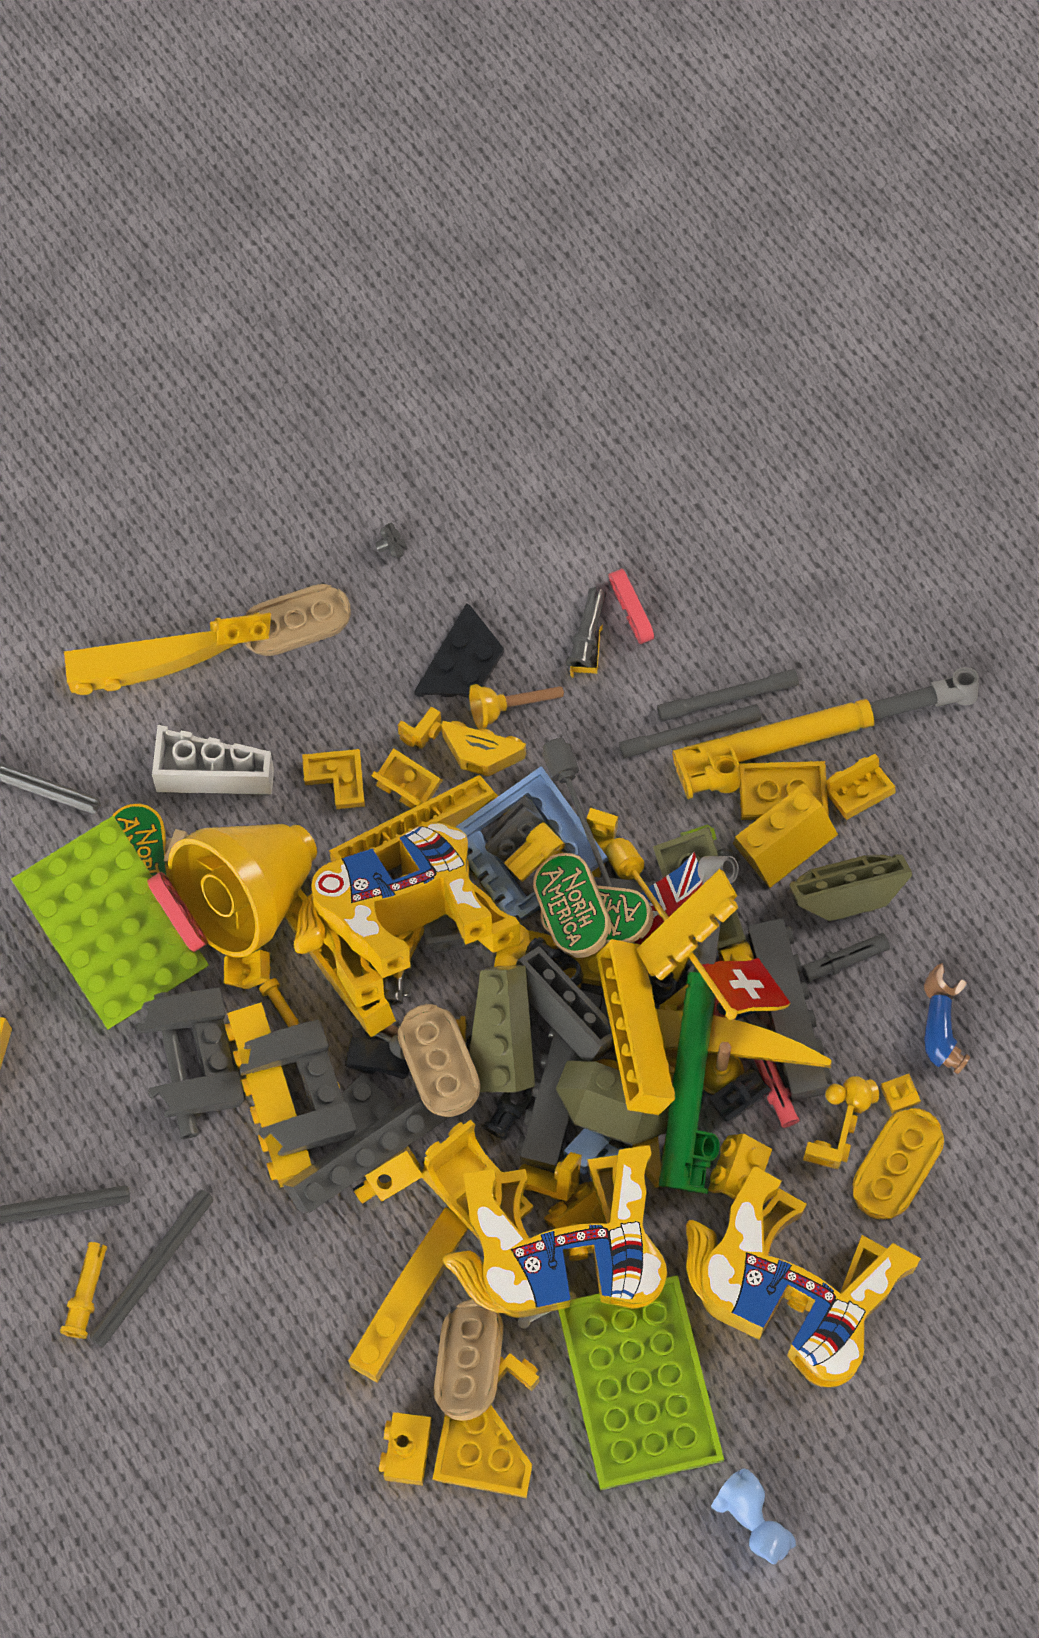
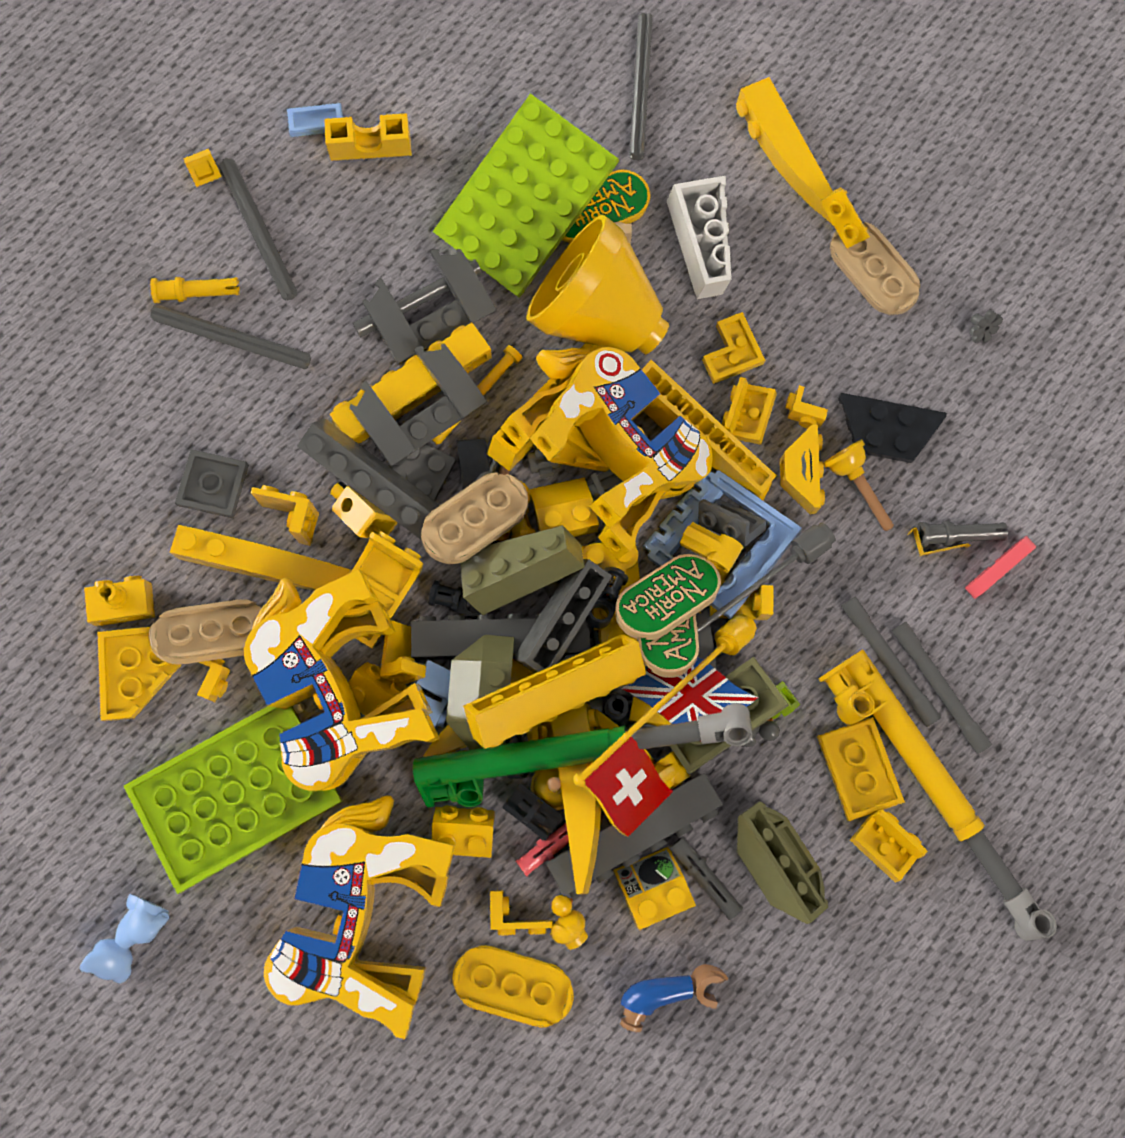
camera: 65 degrees right, 10 degrees up
(177, 911) = (541, 261): coral beam -> none
(248, 970) = (519, 330): yellow bracket -> none
(309, 1324) = (212, 483): none -> dark grey plate
(373, 1229) = (302, 513): none -> yellow bracket
(450, 980) = (565, 505): none -> yellow slope
(690, 920) = (669, 713): yellow windscreen -> none
(785, 836) = (811, 785): yellow slope -> none
(843, 1005) = (654, 888): none -> yellow slope
(900, 1093) = (584, 969): yellow tile -> none

